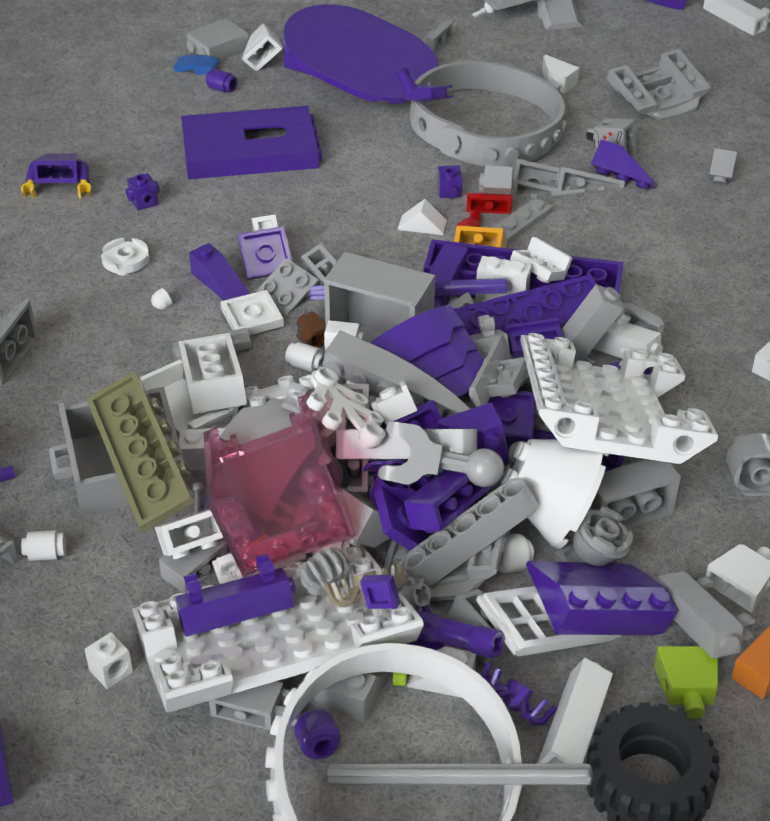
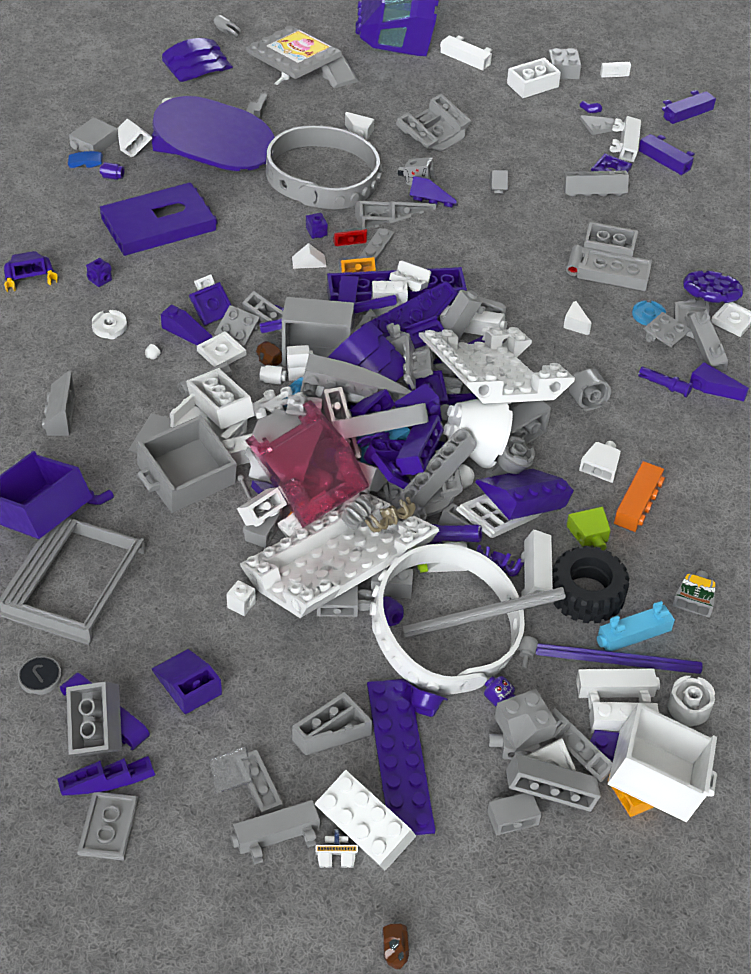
camera: 20 degrees left, 5 degrees up
(44, 545) = (160, 537): white brick -> none
(142, 451) = (209, 460): olive plate -> none
(234, 600) = (306, 544): dark purple brick -> none
(325, 381) = (337, 402): white plant -> none
(380, 592) = (407, 516): dark purple tile -> none
(394, 403) = (362, 395): white brick -> none
(419, 92) = (275, 162): dark purple arm -> none
(472, 221) = (342, 255): red arm -> none
(482, 467) = (401, 427): light grey piece -> none
(496, 180) = (353, 221): light grey brick -> none
(705, 617) = (589, 490): light grey brick -> none

